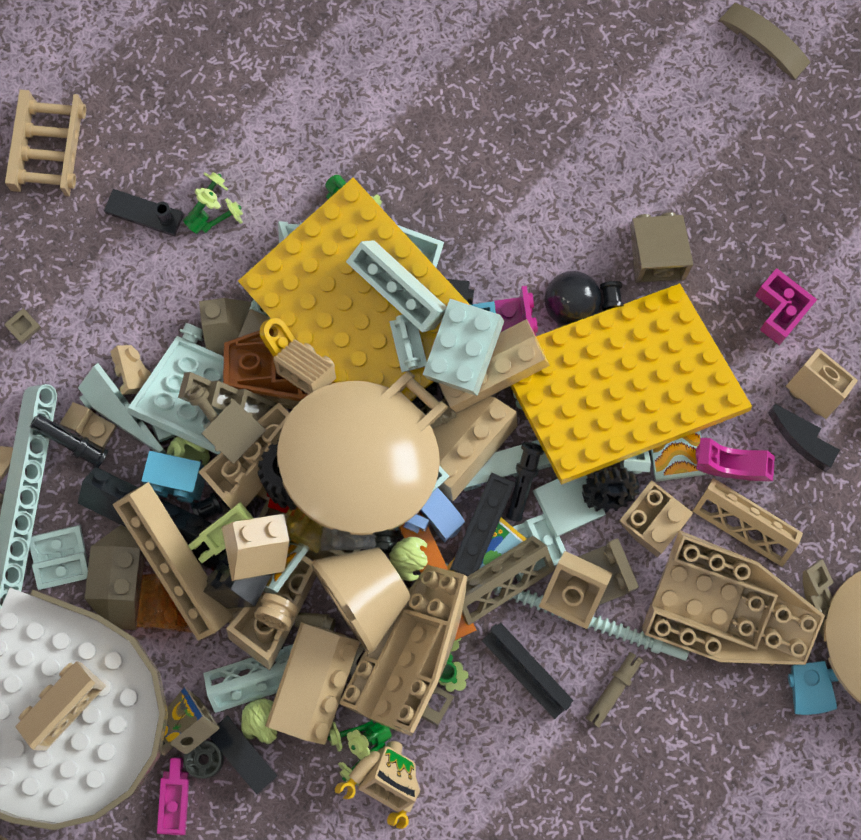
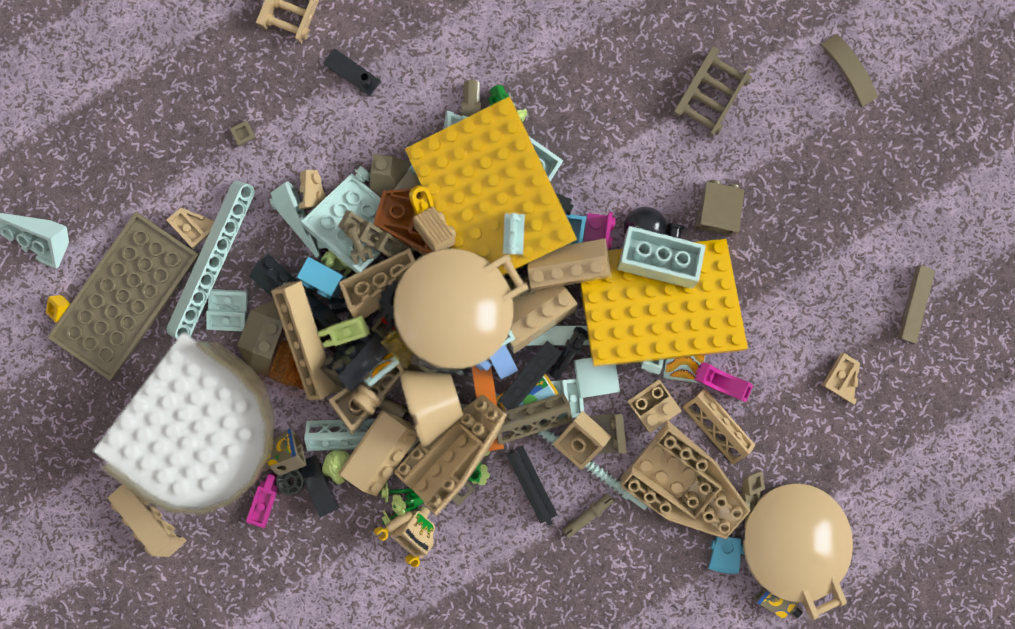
camera: 15 degrees right, 10 degrees up
(59, 706) = (195, 429): tan slope -> none
(79, 446) = (261, 235): black pin -> none
(88, 424) = (271, 220): tan slope -> none
(197, 217) = (390, 89): plant -> none
(233, 431) = (370, 262): dark tan piece -> none
(256, 546) = (363, 352): tan slope -> none
(303, 198) = (471, 99): none -> dark tan piece
(397, 285) = (517, 190): light aqua brick -> none
(408, 557) = (469, 386): yellowish green hair -> none
(463, 347) = (551, 250): light aqua brick -> none
(587, 95) = (703, 76): none -> dark tan fence
(605, 323) = (661, 257): none -> light aqua brick
(610, 489) = (628, 378): black gear -> none
(788, 302) = (800, 278): dark pink brick -> none
(803, 437) = (778, 378): black slope -> none
(821, 384) = (804, 342): tan slope -> none

